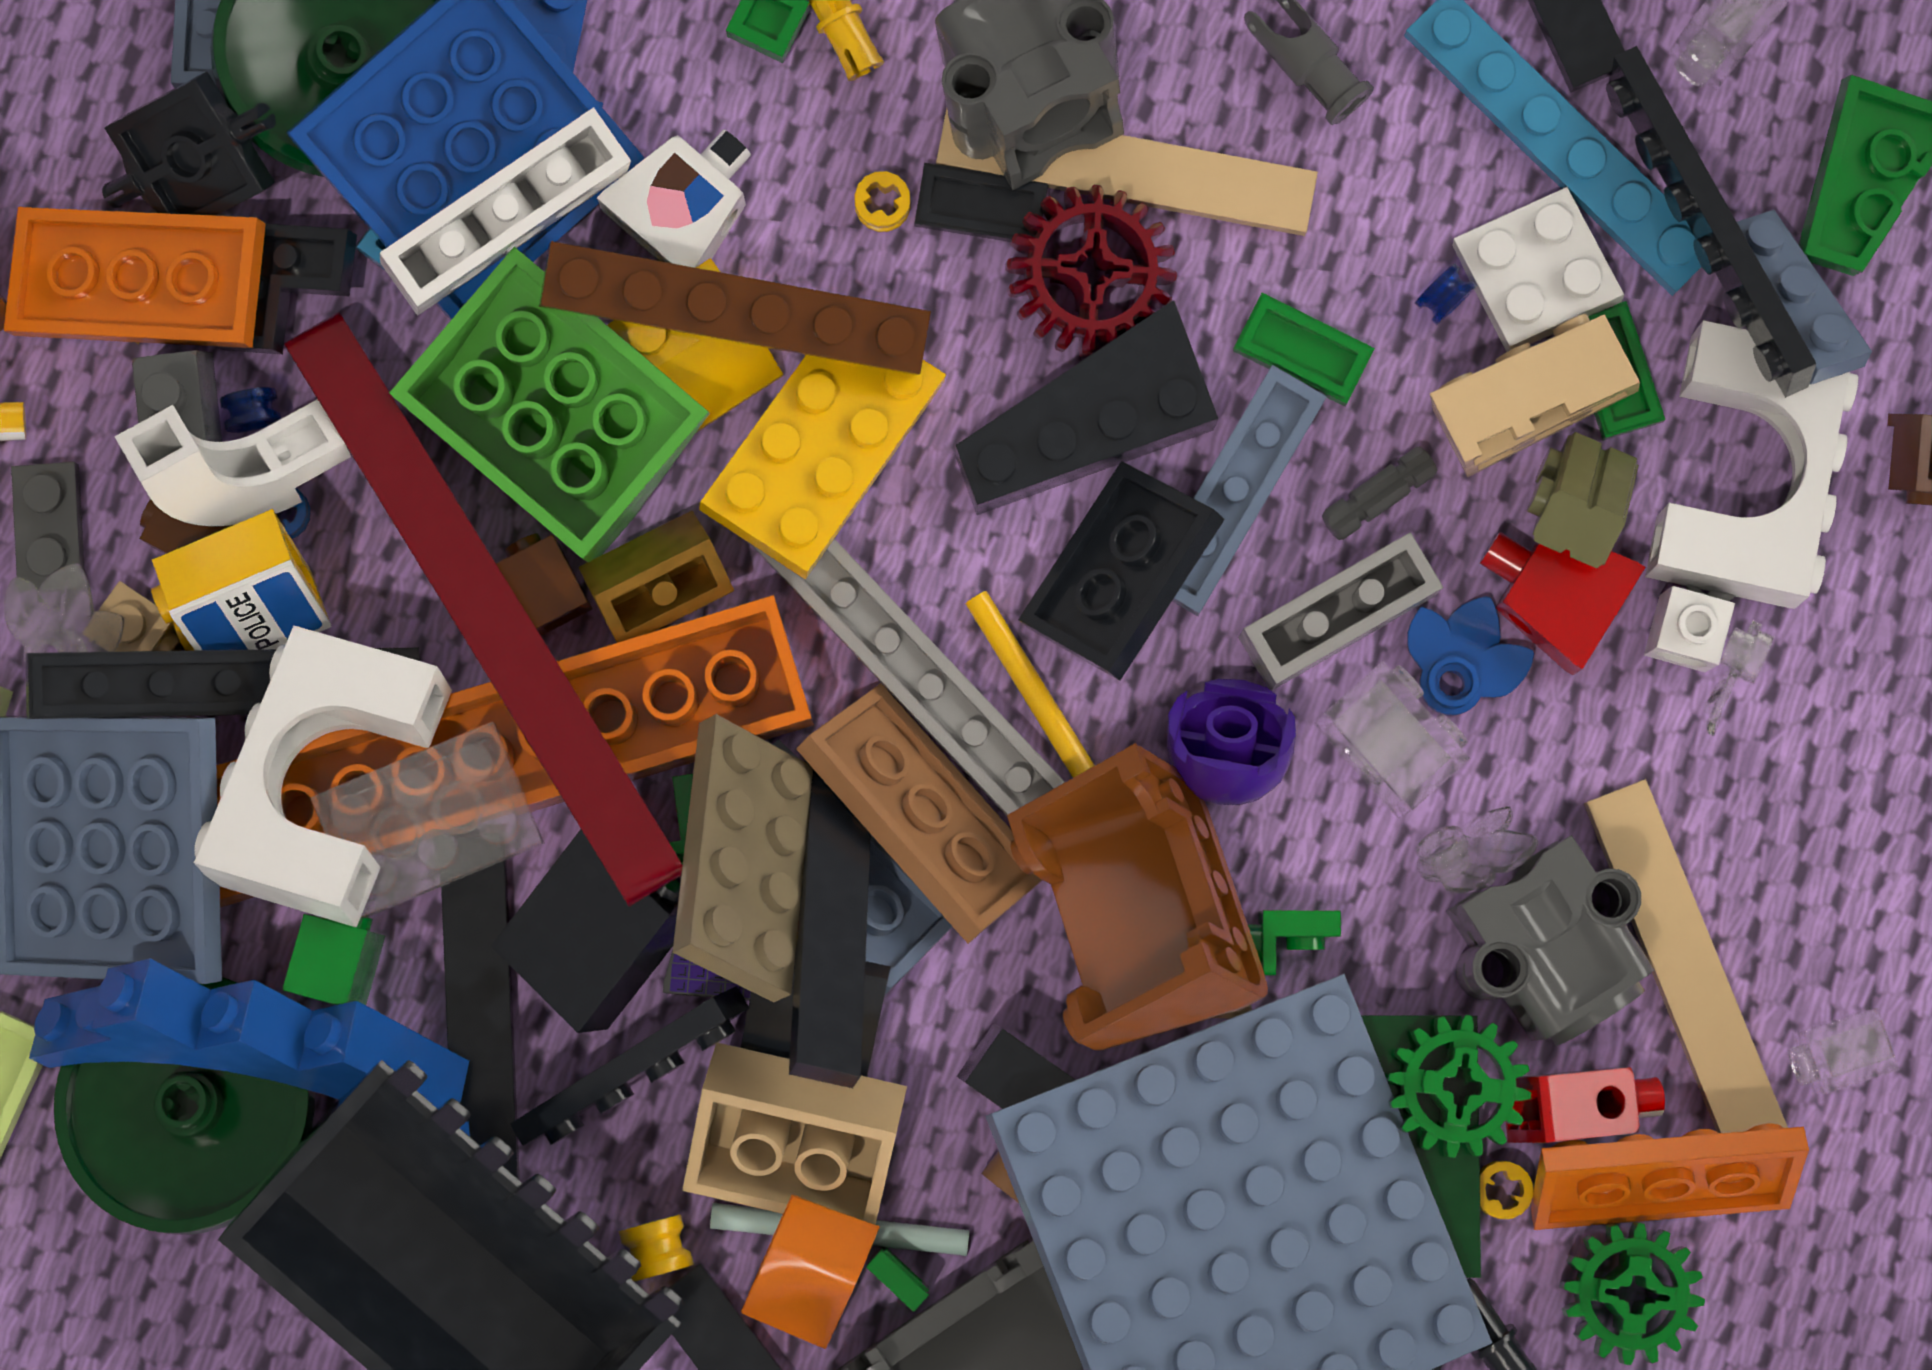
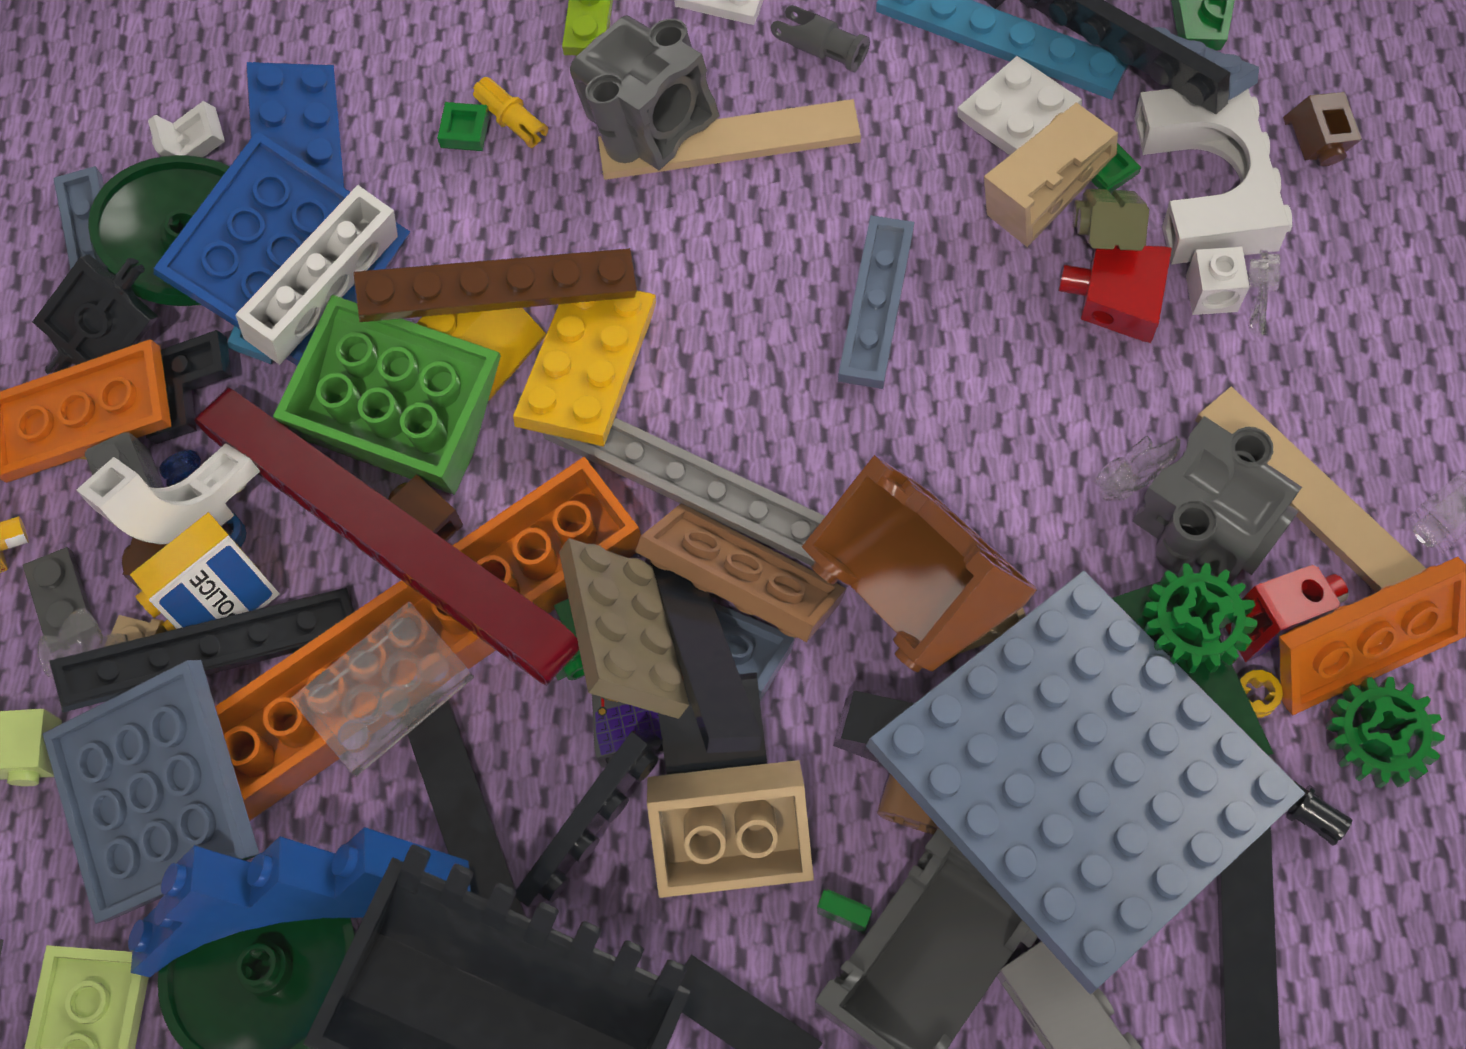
camera: 10 degrees left, 15 degrees down
(313, 690) = (271, 625): white arch -> none
(334, 960) = (340, 809): green brick -> none
(584, 942) = (530, 732): black brick -> none
(656, 578) = (500, 479): pearl gold brick -> none
(657, 1247) = (657, 948): yellow wheel -> none
(680, 199) = (438, 236): white torso -> none
(809, 1270) = (775, 923): orange piece -> none
(886, 183) = (574, 196): yellow bush -> none
(889, 1234) = (786, 893): light aqua bar -> none
(975, 203) = (641, 190): black tile -> none
(1029, 684) = (779, 466): yellow bar -> none
(1060, 269) = (711, 214): dark red gear -> none
(1103, 411) = (763, 284): black wedge -> none
(1121, 570) = (819, 369): black plate -> none
(1230, 741) = (940, 451): dark purple cylinder -> none
(1301, 928) = (1040, 559): green bracket -> none
(1303, 348) = (887, 201): green tile -> none
(1340, 611) = (978, 345): light grey brick -> none
(1379, 493) = (973, 272): dark grey axle -> none
(1393, 738) = (1049, 409): clear brick -> none
(1445, 294) = (966, 139): clear blue bush -> none
(1470, 649) = (1074, 348): blue plate -> none

